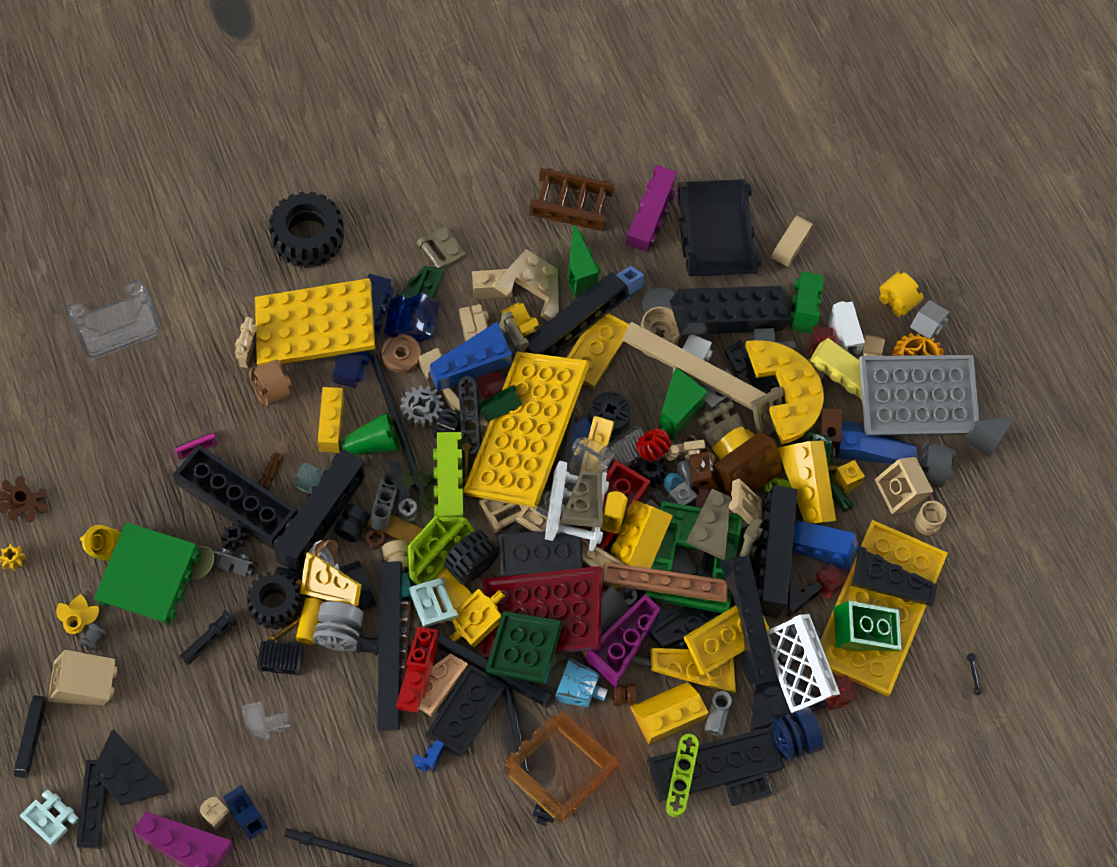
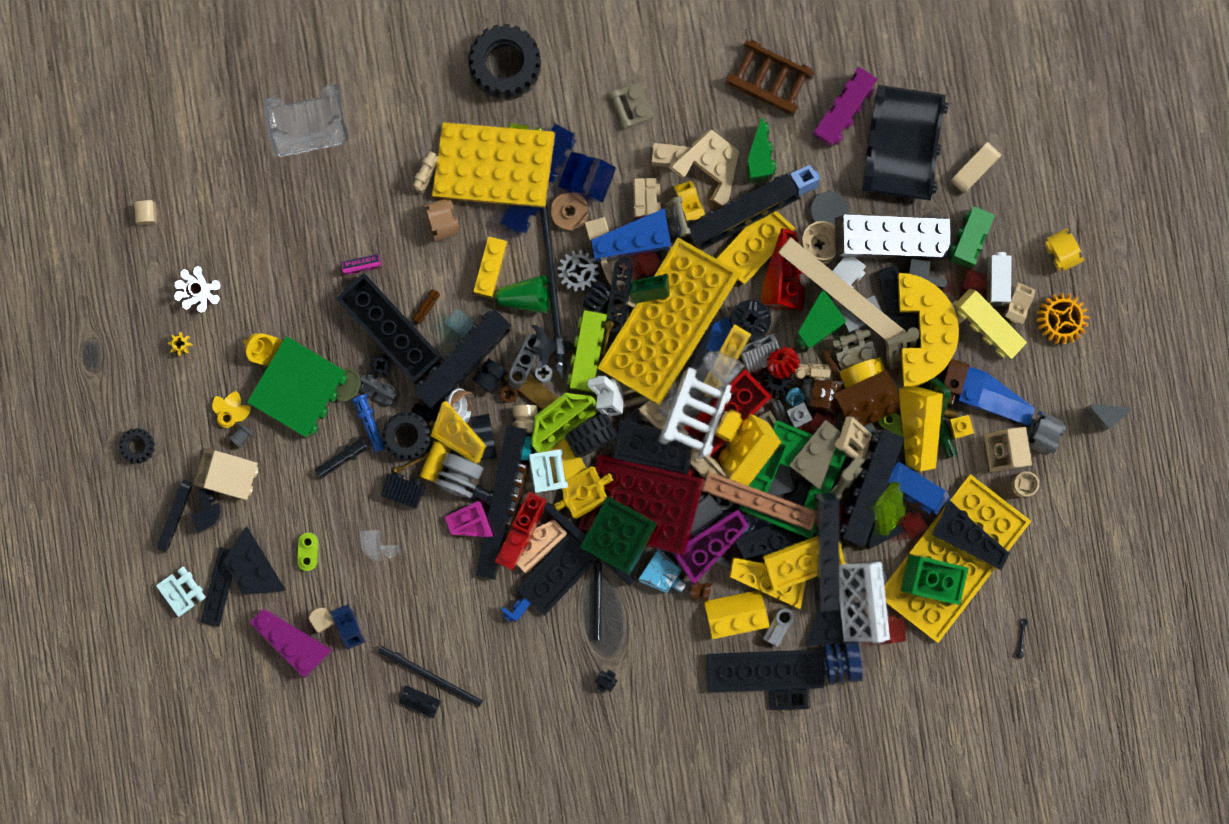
camera: 15 degrees right, 20 degrees up
(70, 728) = (210, 515): none -> black brick
(185, 744) = (308, 551): none -> lime plate
(225, 589) = (365, 414): none -> blue pin
(359, 674) = (469, 521): none -> dark pink wing
(425, 282) = (605, 143): dark green wing -> none
(479, 512) = (608, 395): none -> white brick
(584, 742) = (654, 626): clear orange window -> none
(585, 502) = (703, 415): dark tan wing -> none
(631, 373) = (782, 281): none -> red wedge
(684, 775) = (729, 675): lime beam -> none
(802, 564) = (890, 508): none -> clear neon green plate
(918, 394) = (1049, 361): light grey plate -> none
(930, 319) = (1084, 283): light grey brick -> none

